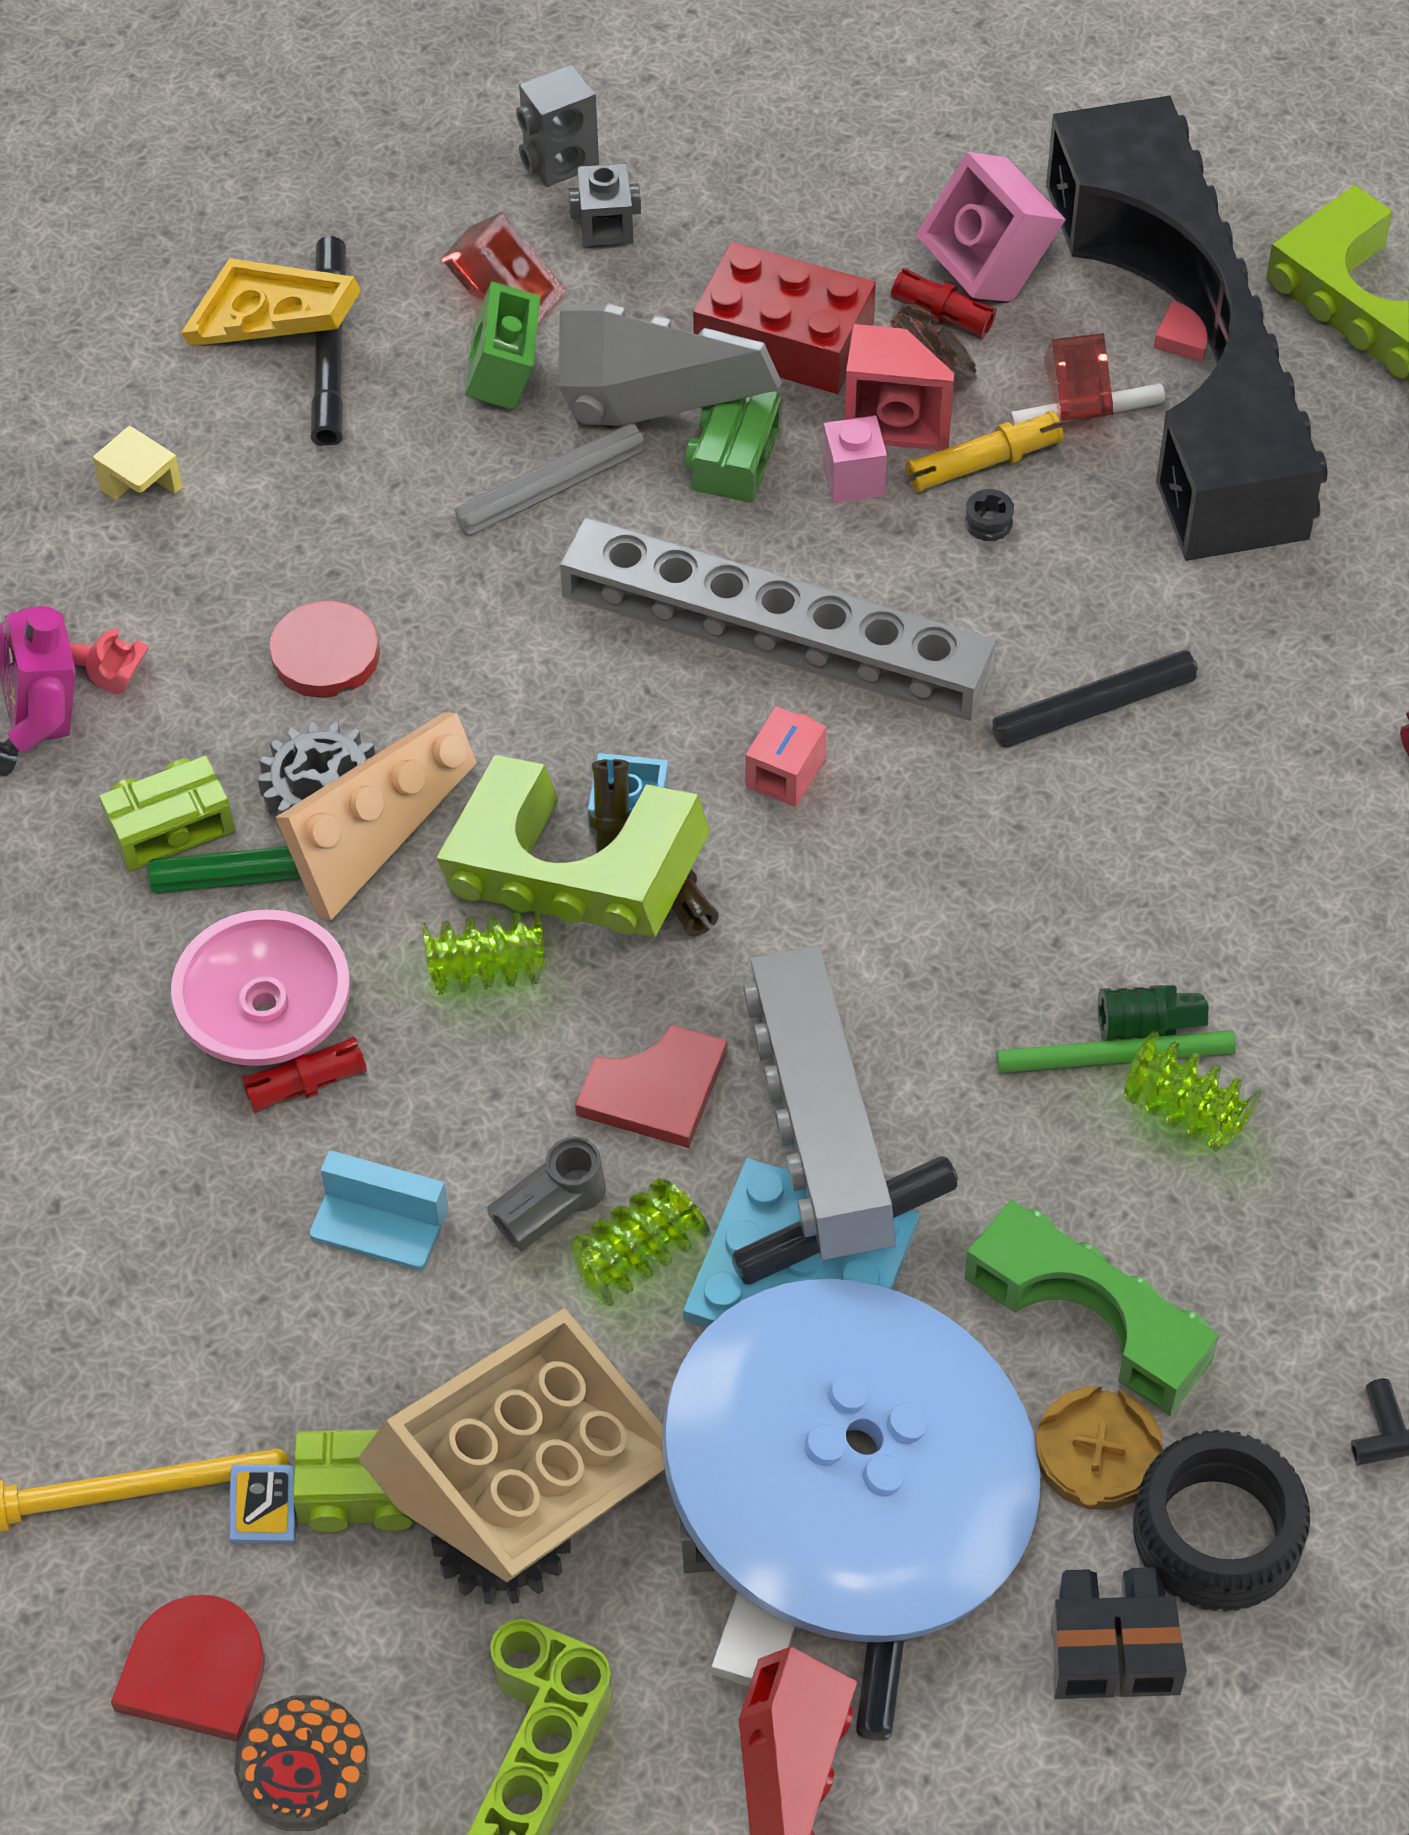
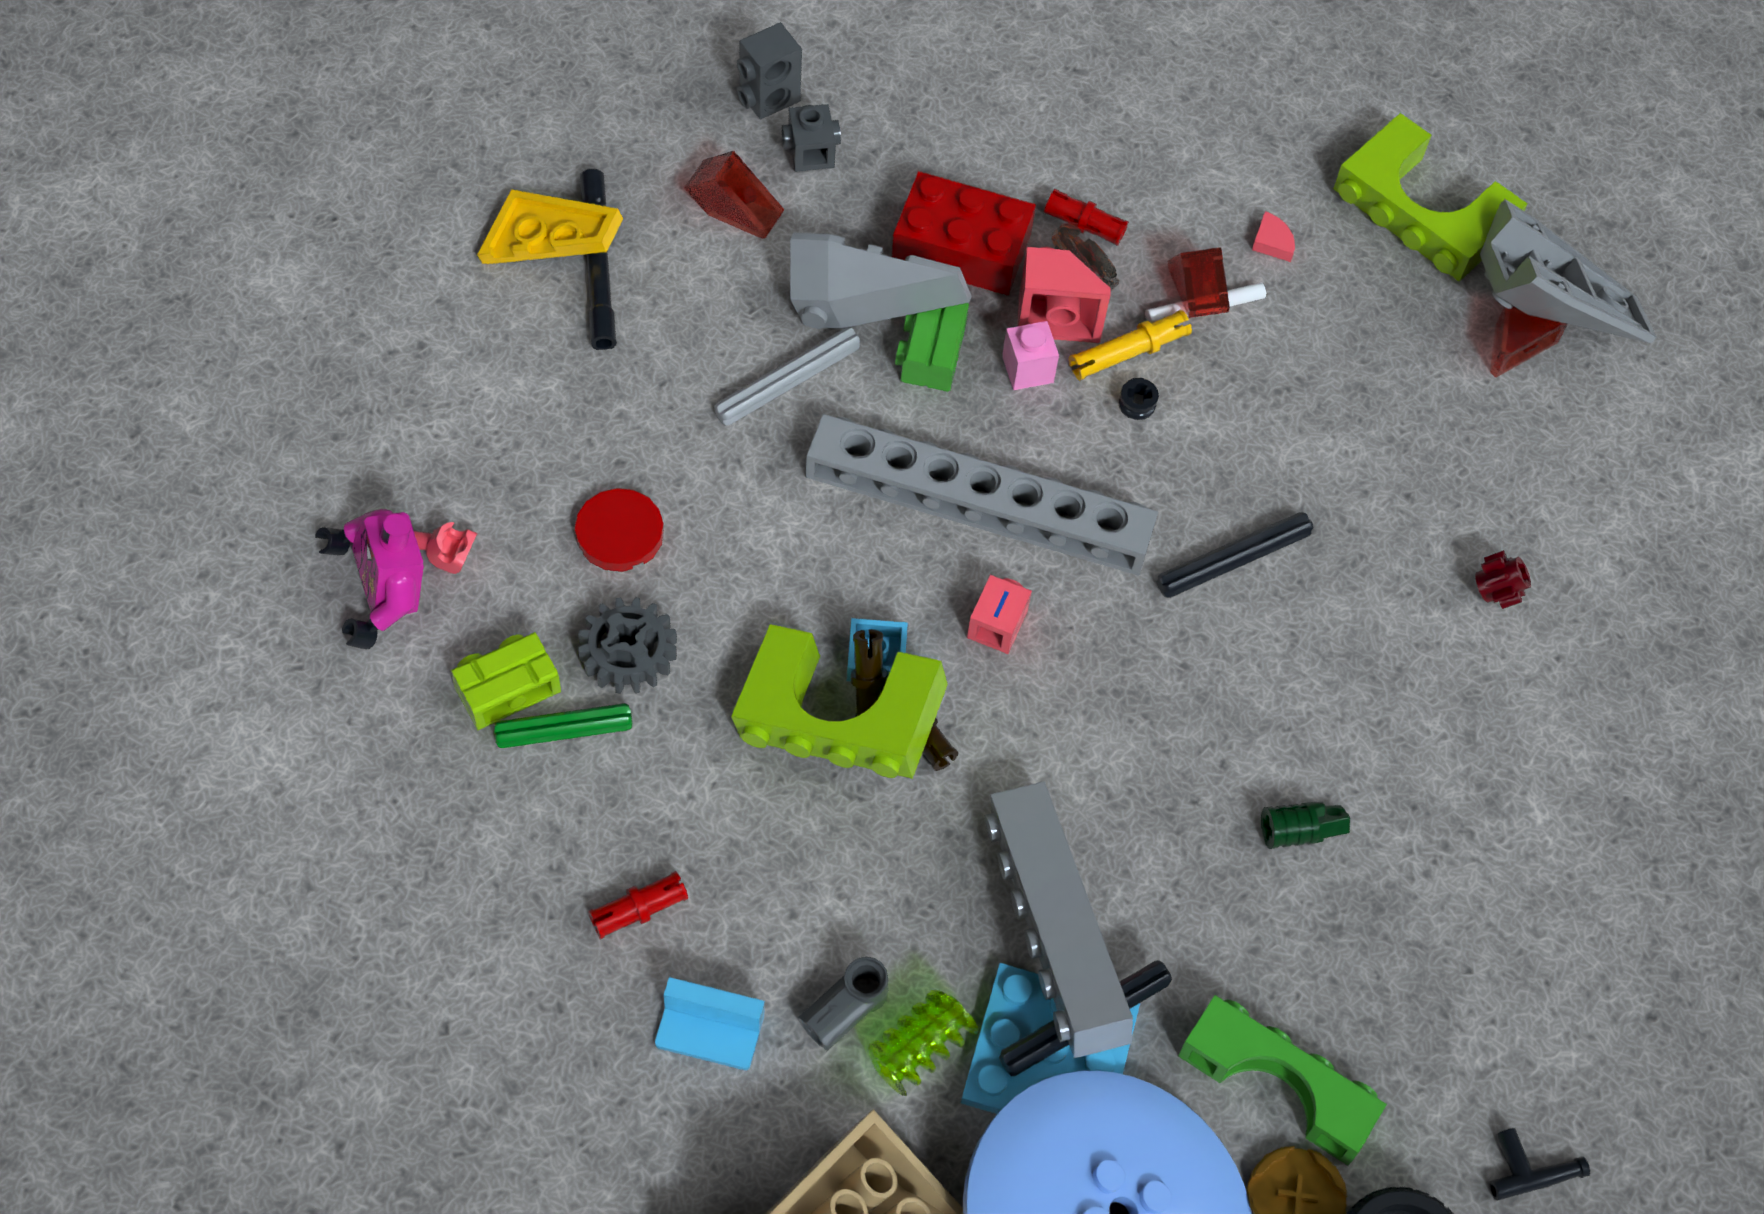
camera: 10 degrees left, 5 degrees up
(135, 463) = (452, 373): light yellow panel -> none
(257, 962) = (591, 809): bright pink dish -> none
(367, 813) = (671, 676): light nougat wing -> none
(484, 953) = (776, 794): clear neon green piece -> none
(502, 345) = (741, 263): bright green brick -> none
(657, 1090) = (923, 905): tile -> none
(990, 227) = (1121, 155): bright pink brick -> none
(1109, 1052) = (1278, 857): bright green bar -> none
(1188, 1094) = (1342, 894): clear neon green piece -> none
(1238, 449) = (1335, 346): black arch -> none

